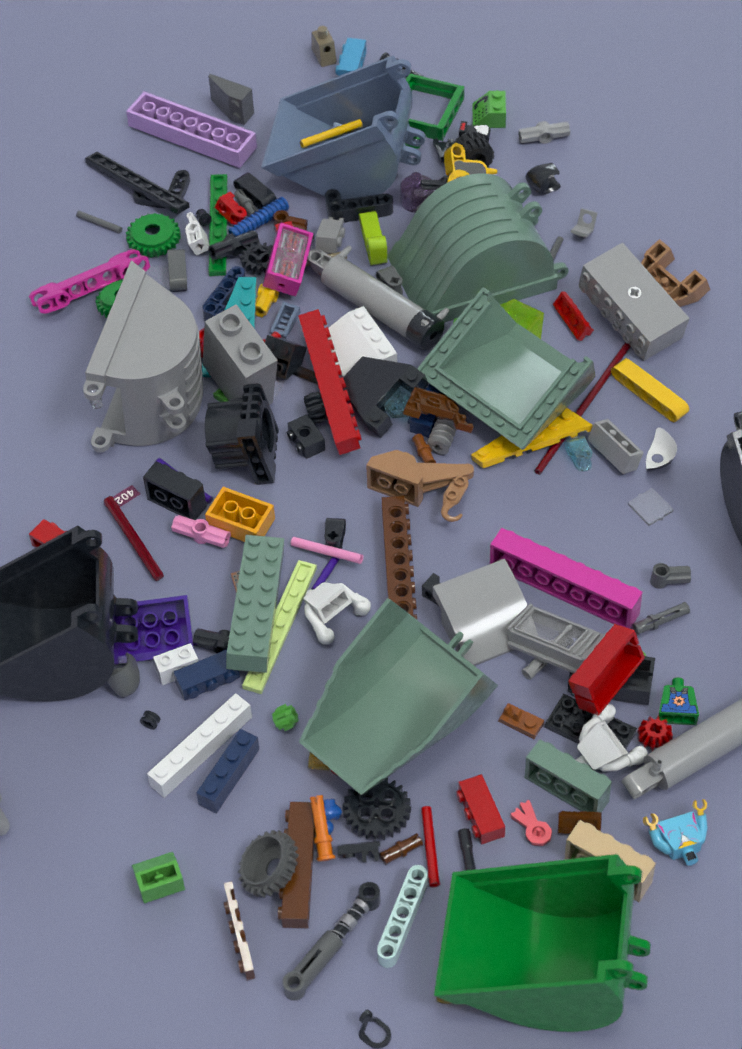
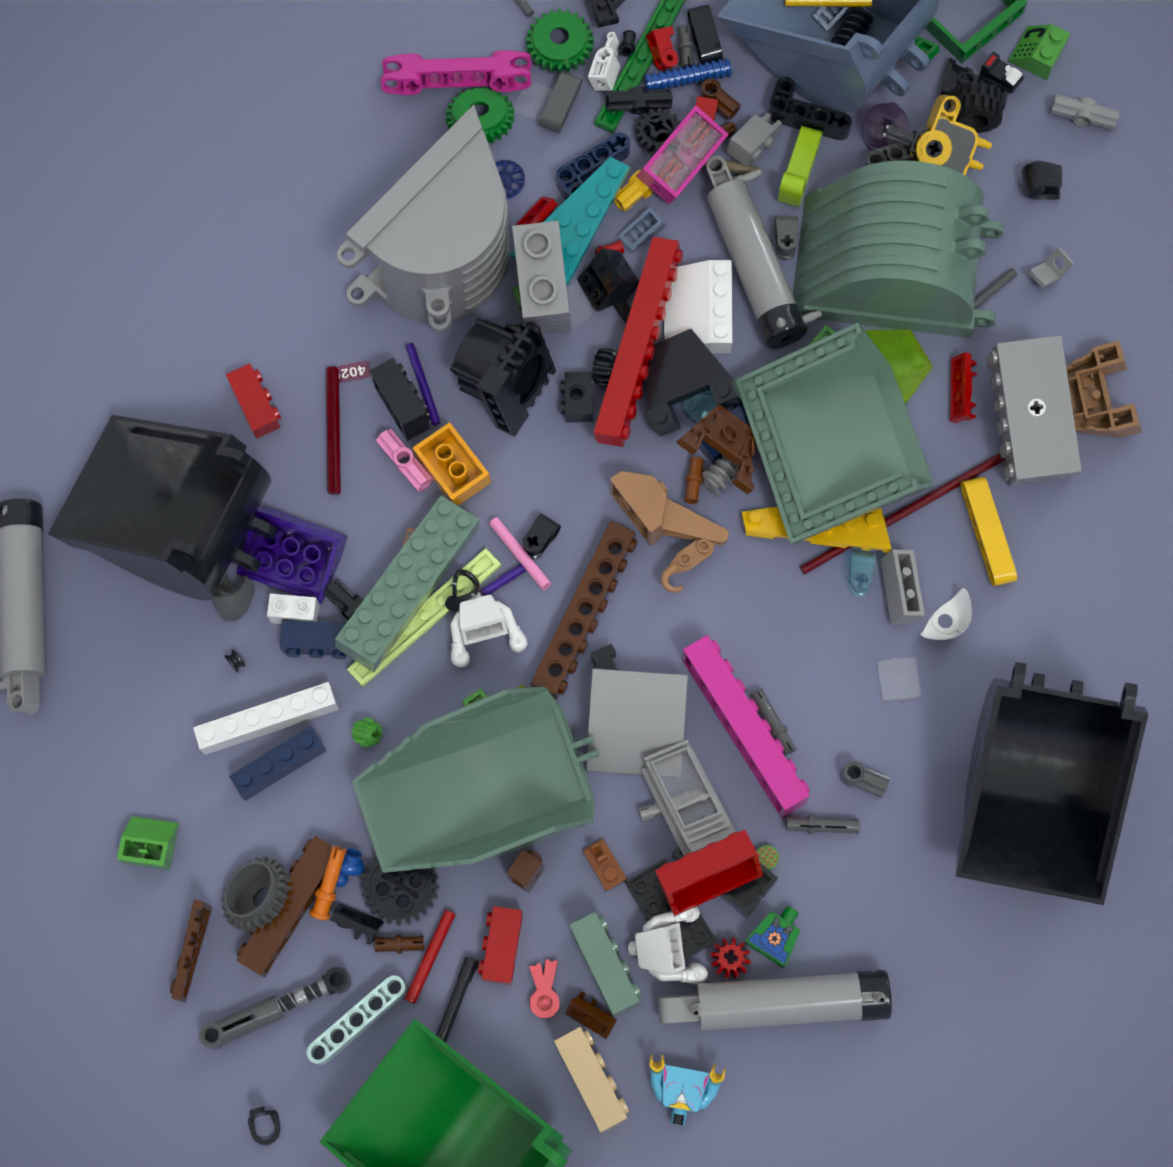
camera: 30 degrees right, 20 degrees up
(297, 602) = (453, 602): none -> black piece
(467, 746) = (526, 869): none -> reddish brown brick

